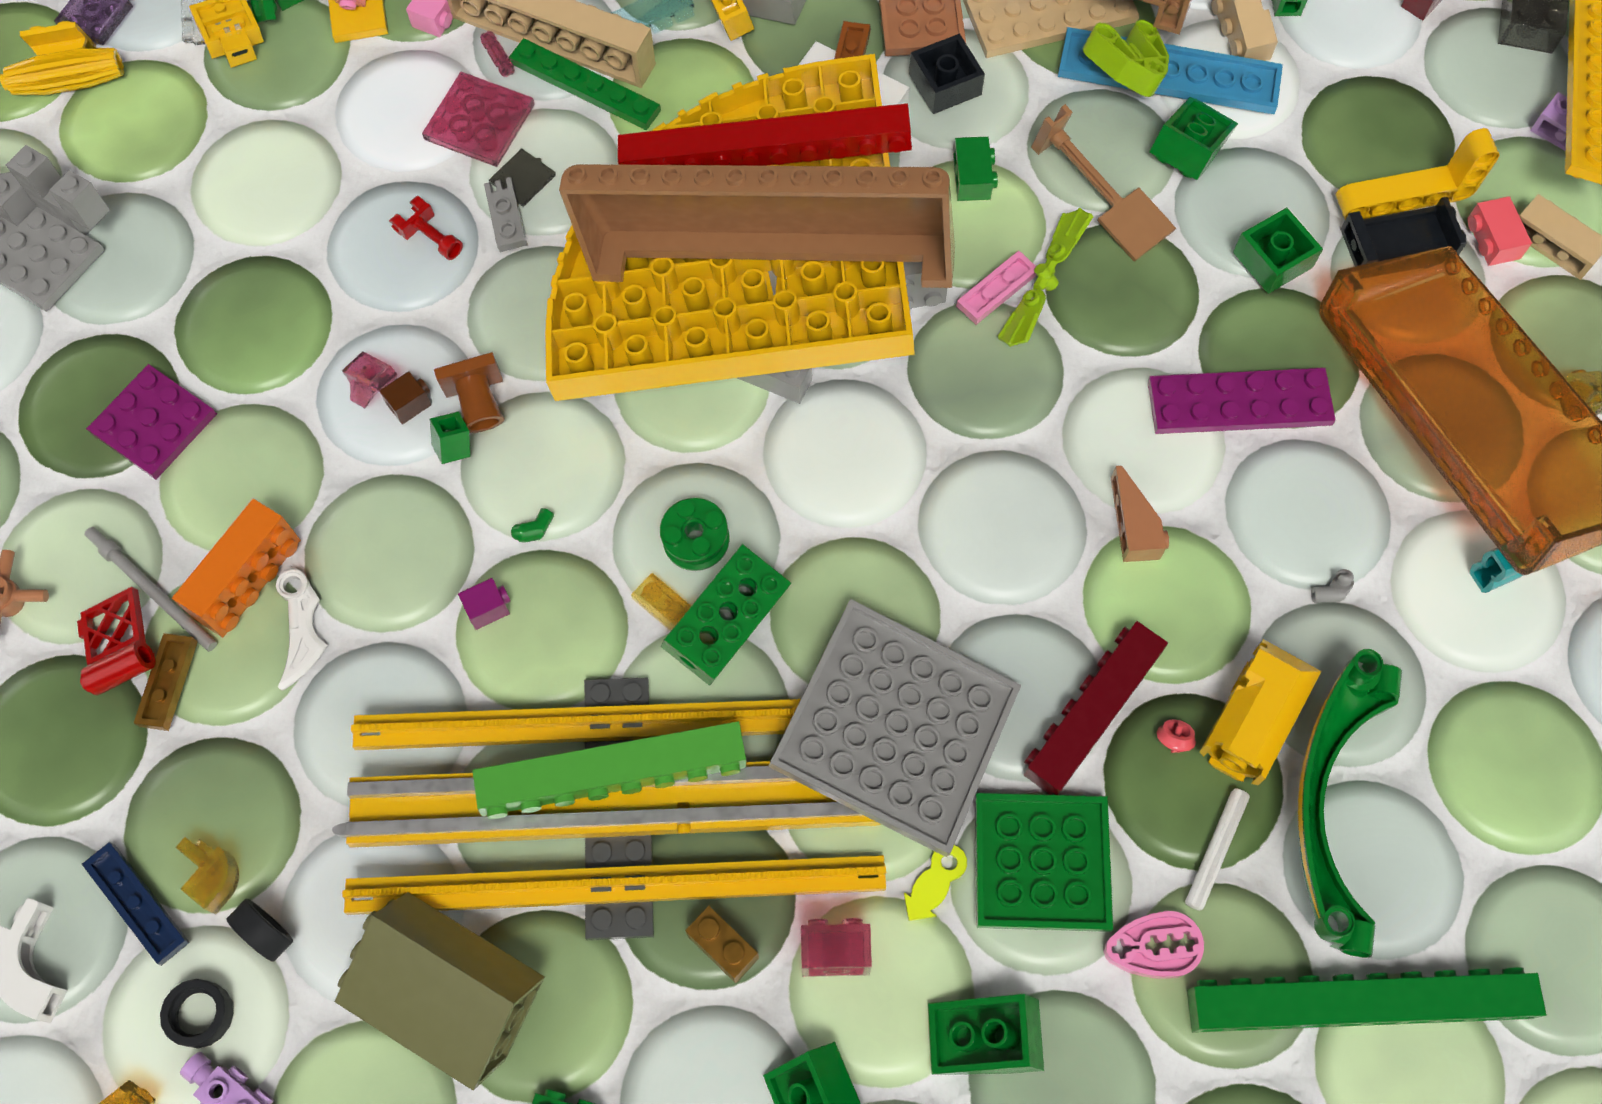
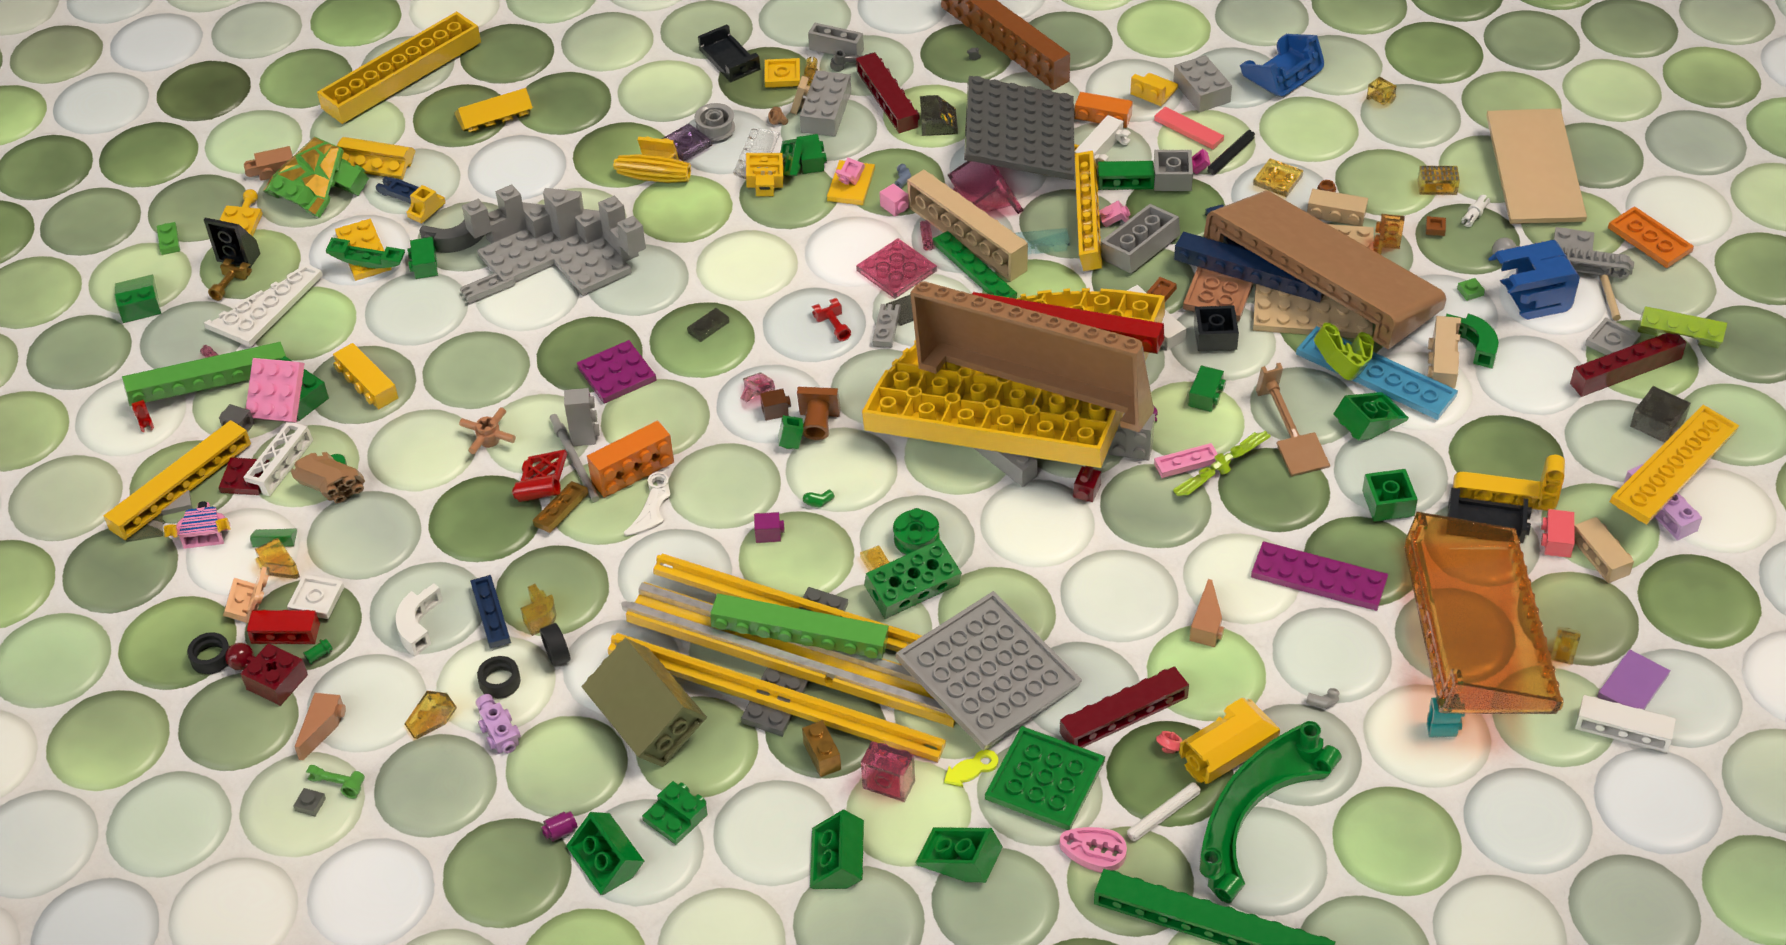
camera: 25 degrees right, 20 degrees down
(133, 528) = (581, 416): none -> light grey brick
(253, 298) = (708, 324): none -> clear smoke plate
(888, 376) = (1087, 483): none -> dark red brick

